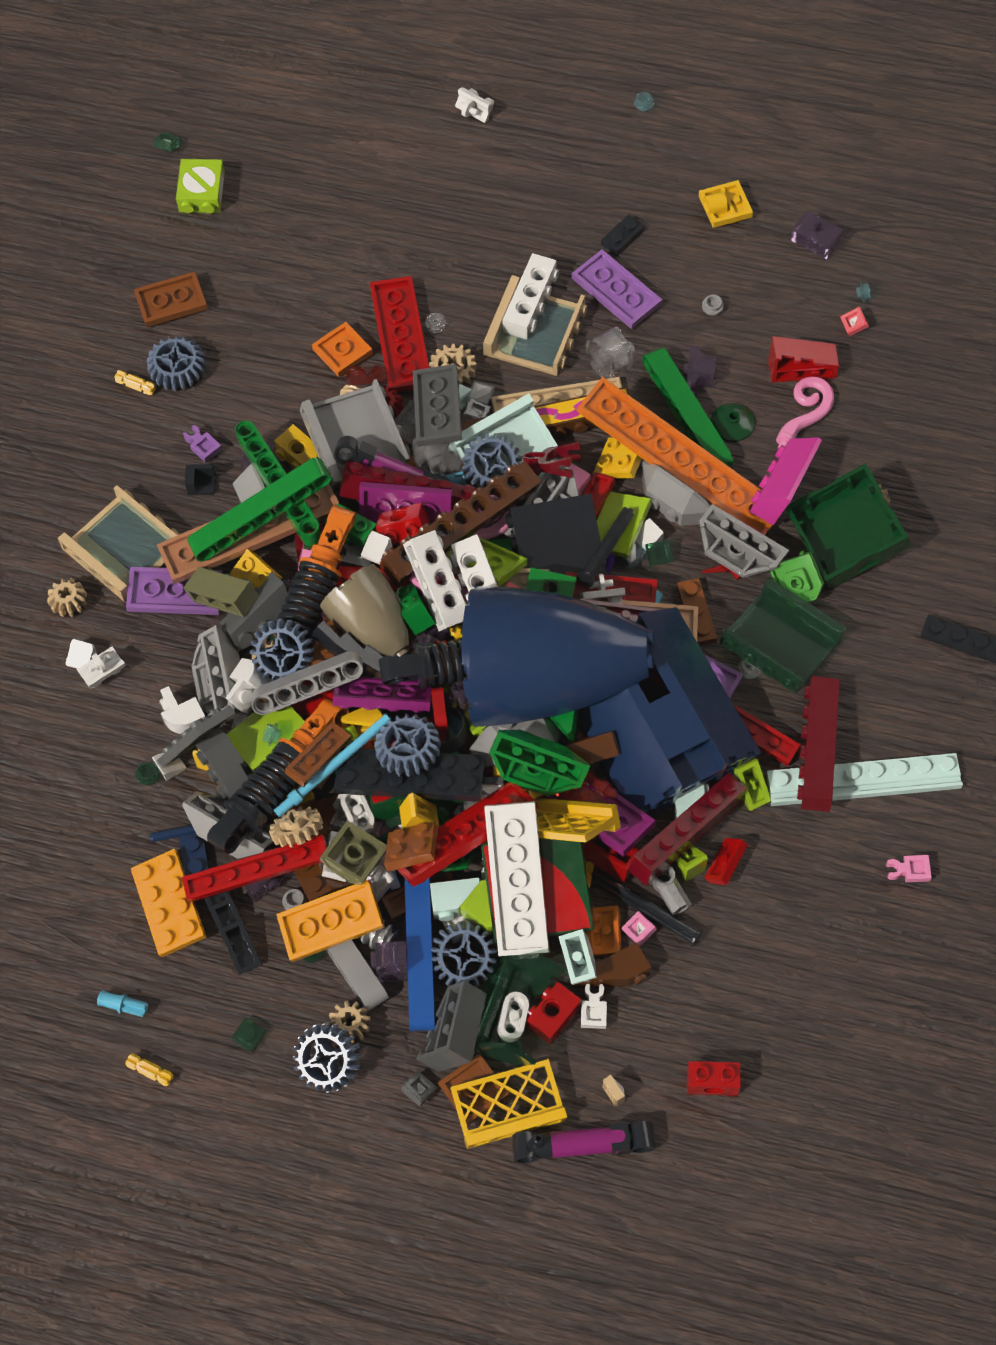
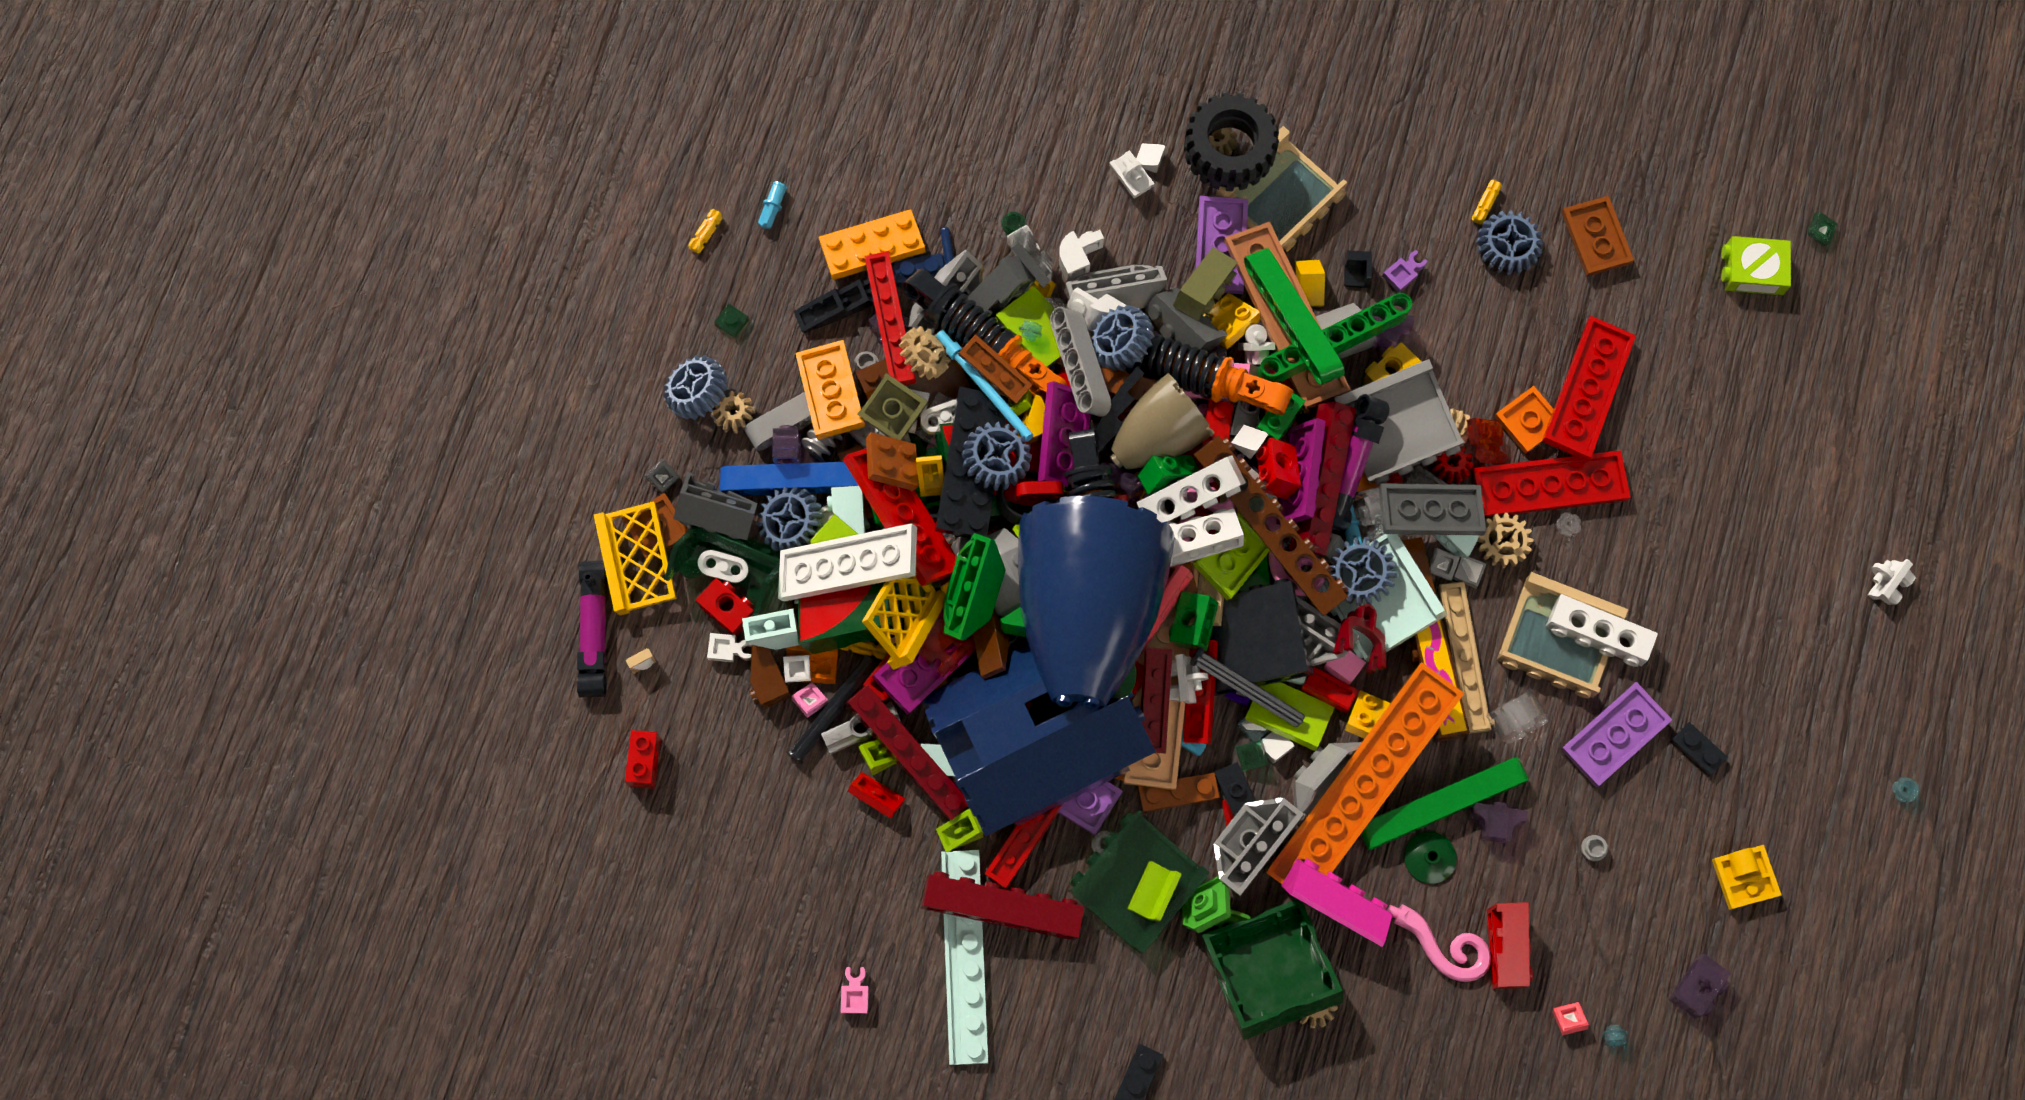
camera: 90 degrees right, 10 degrees up
(70, 548) = (1238, 114): none -> black tyre
(206, 513) = (1312, 281): none -> yellow slope
(280, 554) = (1256, 348): none -> white hips
(314, 303) = (1589, 388): none -> red plate
(609, 940) = (797, 668): none -> white slope
(689, 566) = (1234, 787): none -> black plate
(791, 620) = (1154, 892): none -> lime panel

